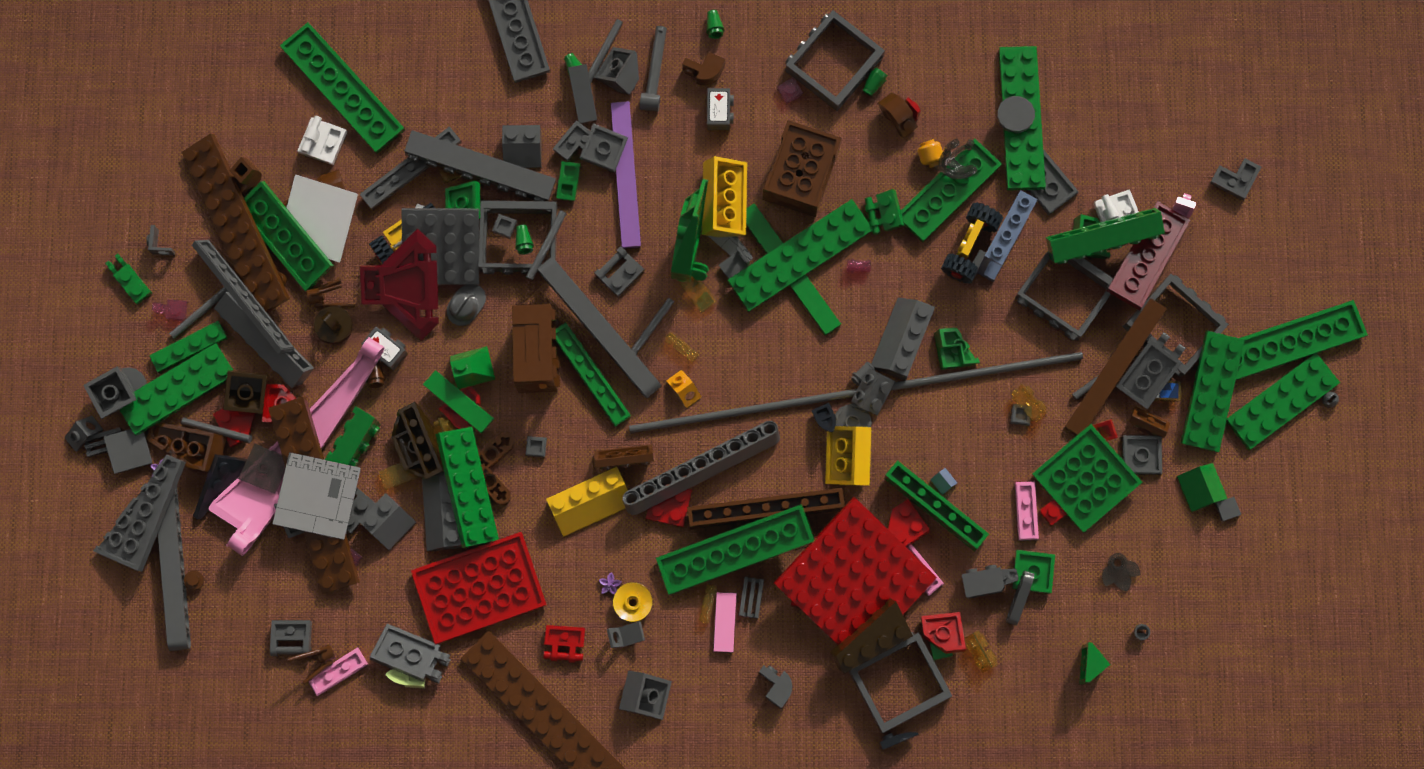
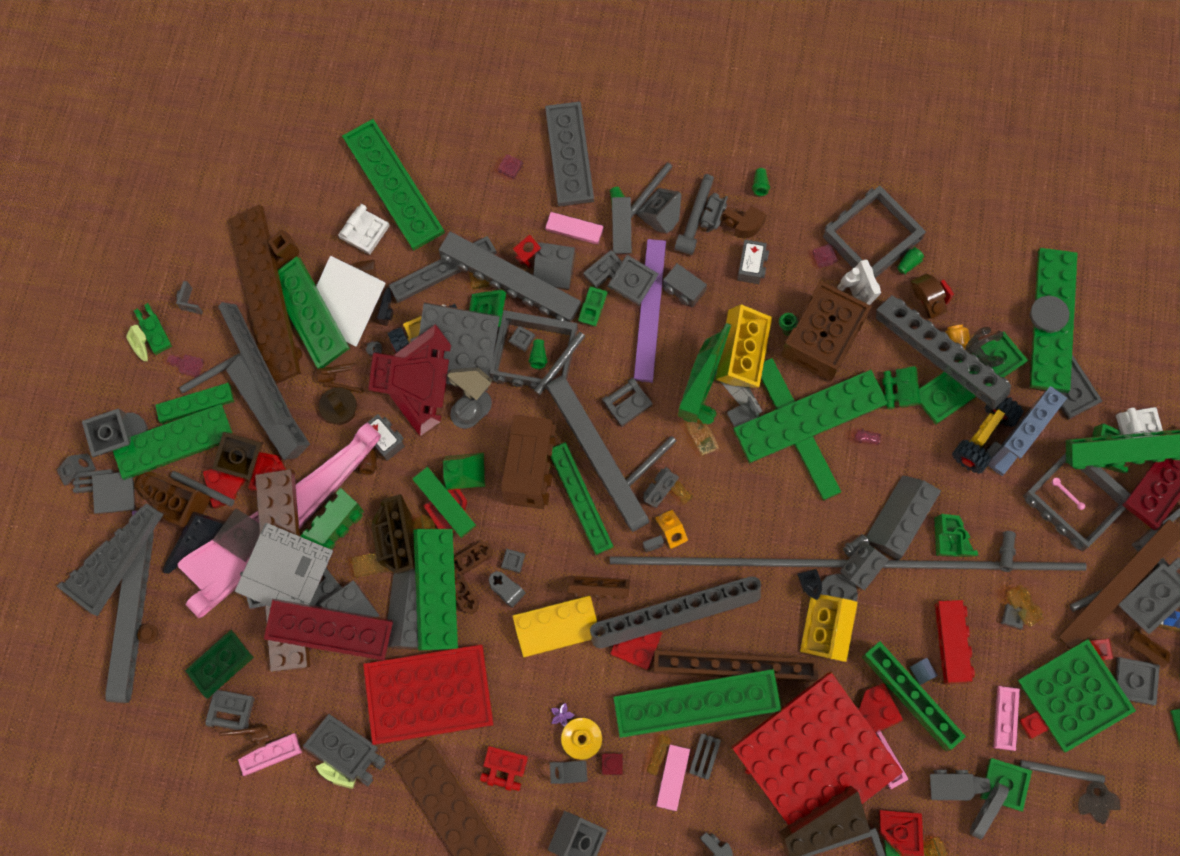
camera: 15 degrees right, 5 degrees down
(116, 294) = (137, 339): none -> yellowish green plate
(271, 595) = (219, 664): none -> dark green plate
(353, 260) = (373, 344): none -> dark grey hinge
(362, 221) = (385, 312): none -> black plate
(371, 543) = (328, 629): none -> dark red plate
(458, 49) = (510, 166): none -> clear pink plate
(461, 276) = (472, 380): none -> dark tan slope
(490, 143) = (523, 256): none -> red bracket
(535, 103) = (574, 228): none -> bright pink tile
(537, 477) = (508, 591): none -> dark grey piece
(655, 144) = (684, 285): none -> dark grey brick
(664, 355) = (656, 493): none -> dark grey hinge
(665, 620) = (612, 764): none -> dark red plate
(668, 406) = (653, 544): none -> dark grey tile
(671, 72) = (711, 220): none -> dark grey hinge
(763, 166) = (788, 322): none -> green cone
(830, 114) = (861, 282): none -> white plate
(967, 448) = (953, 642): none -> red brick
(969, 206) = (945, 360): none -> dark grey brick
(1006, 353) = (1007, 551): none -> dark grey pin
(1043, 279) = (1056, 482): none -> bright pink hinge
(1083, 550) = (1061, 771): none -> dark grey bar

